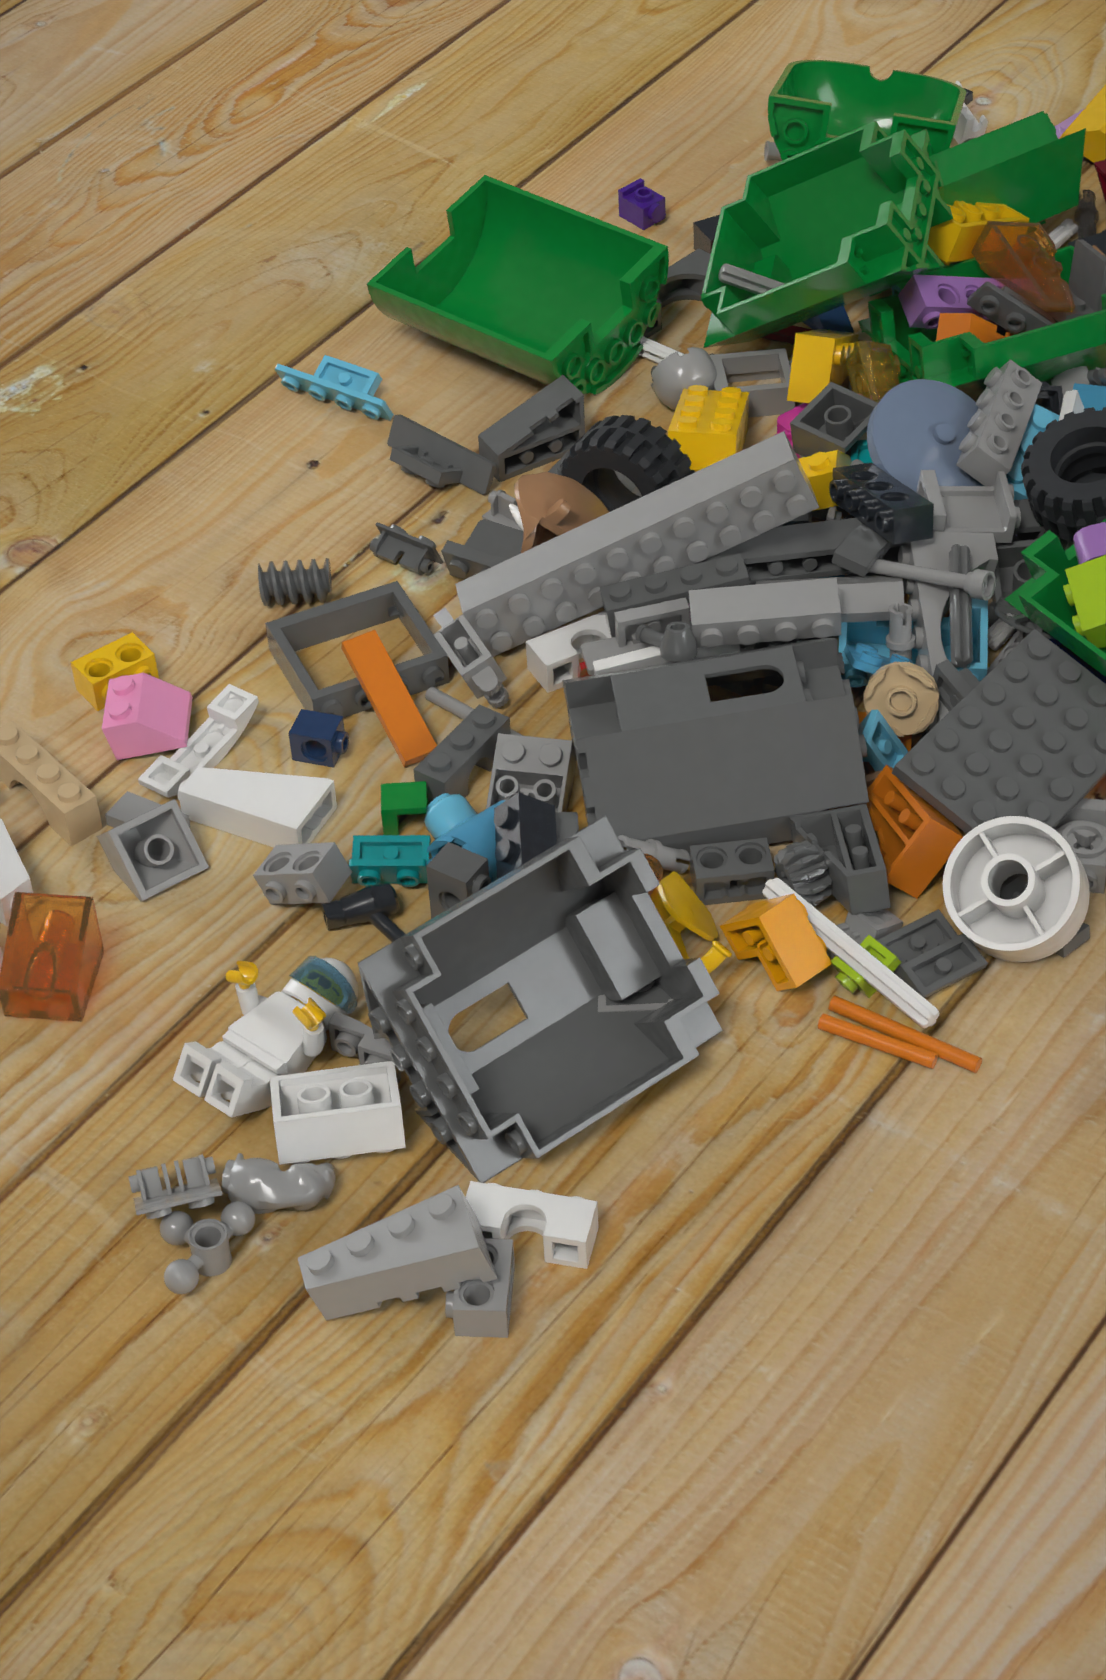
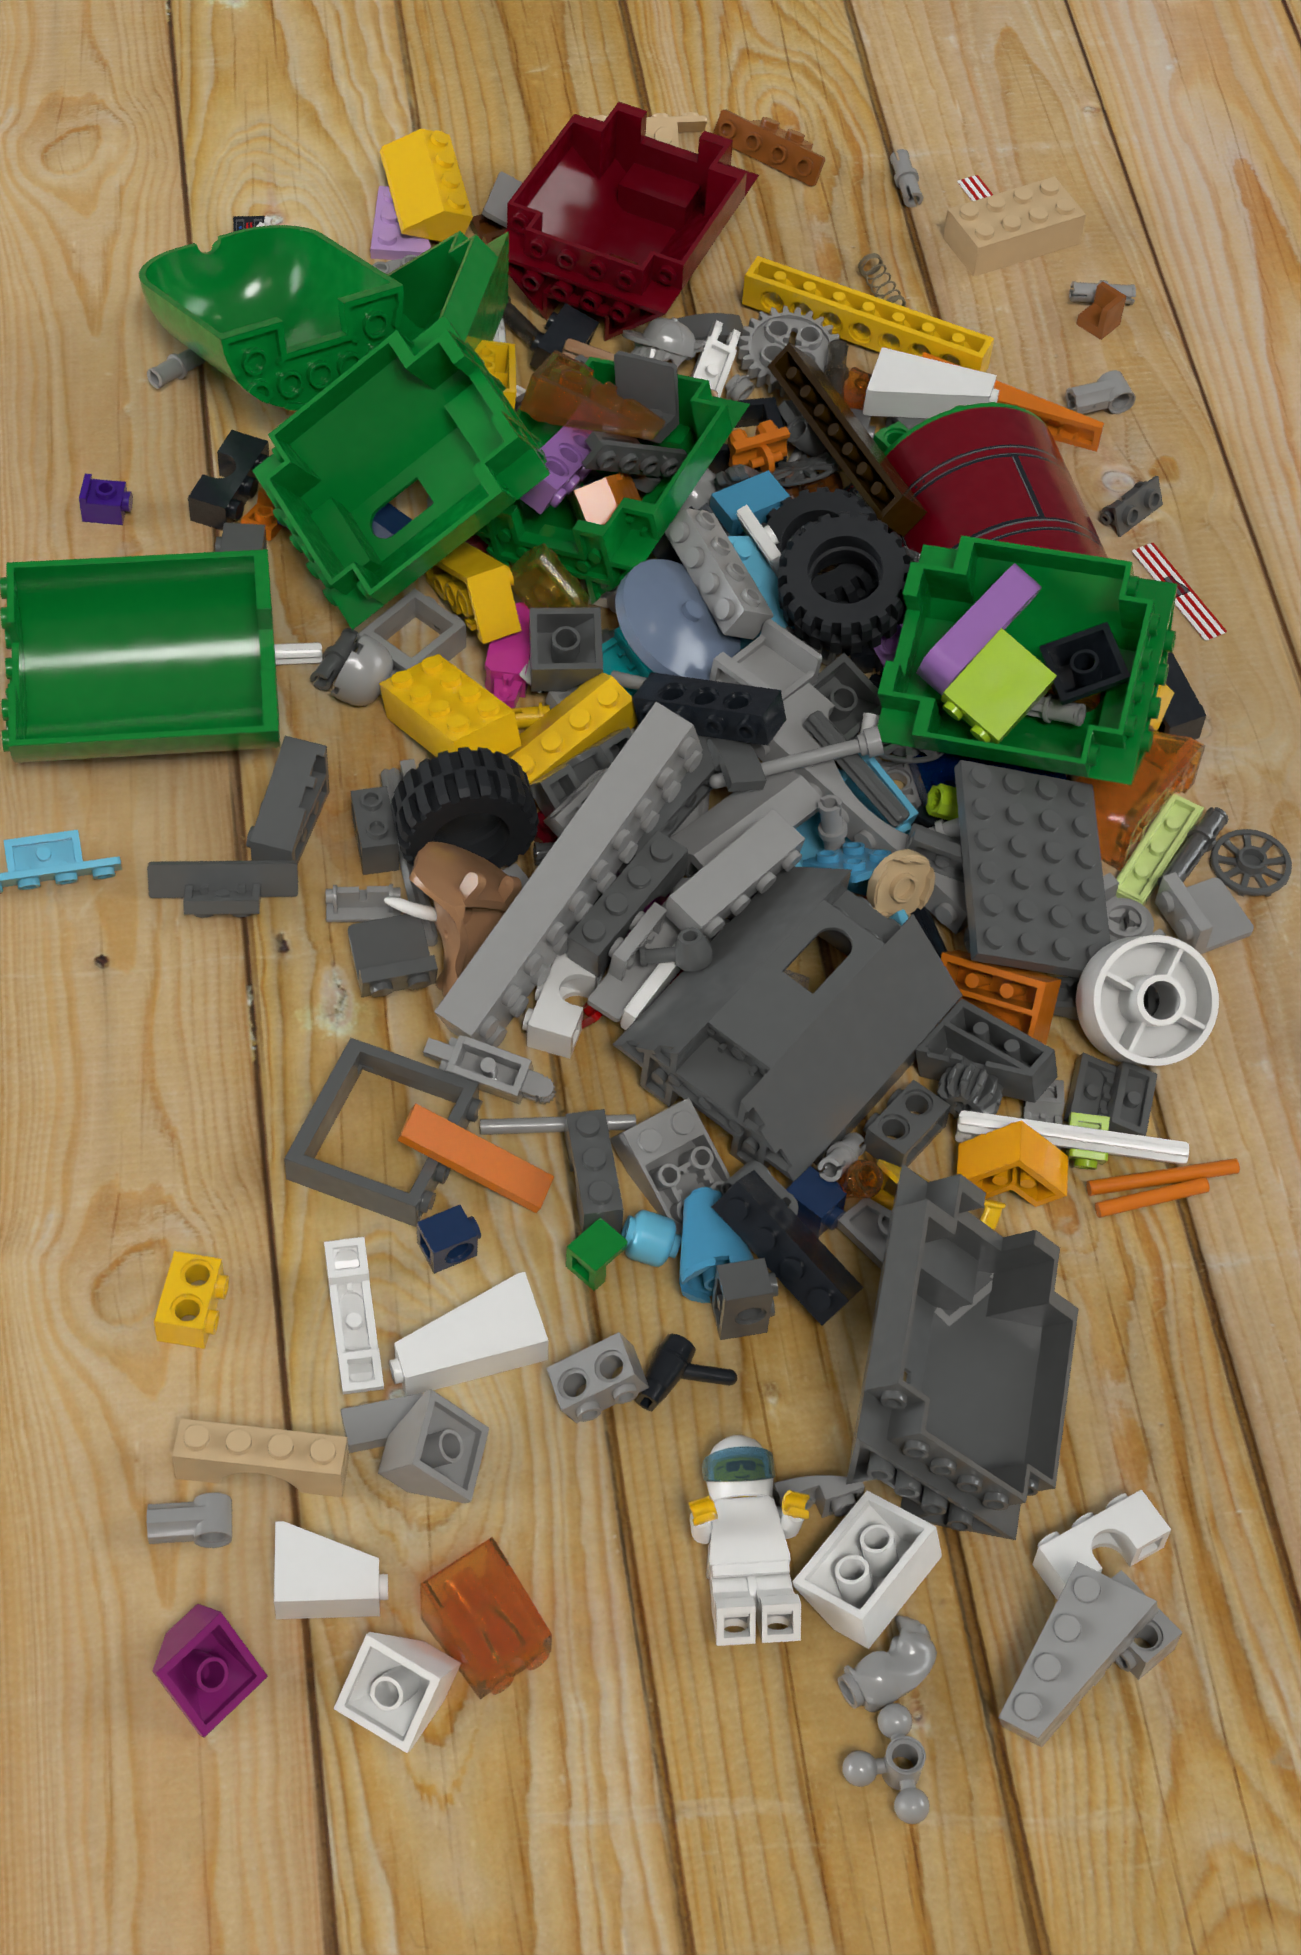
camera: 50 degrees left, 10 degrees up
(145, 716) = (278, 1324): bright pink slope -> none
(158, 1202) = (831, 1739): light grey hinge -> none
(295, 582) = (249, 1094): dark grey piece -> none
(390, 859) = (641, 1308): teal bracket -> none
(417, 552) = (287, 997): dark grey hinge -> none
(746, 280) = (359, 538): light grey axle -> none

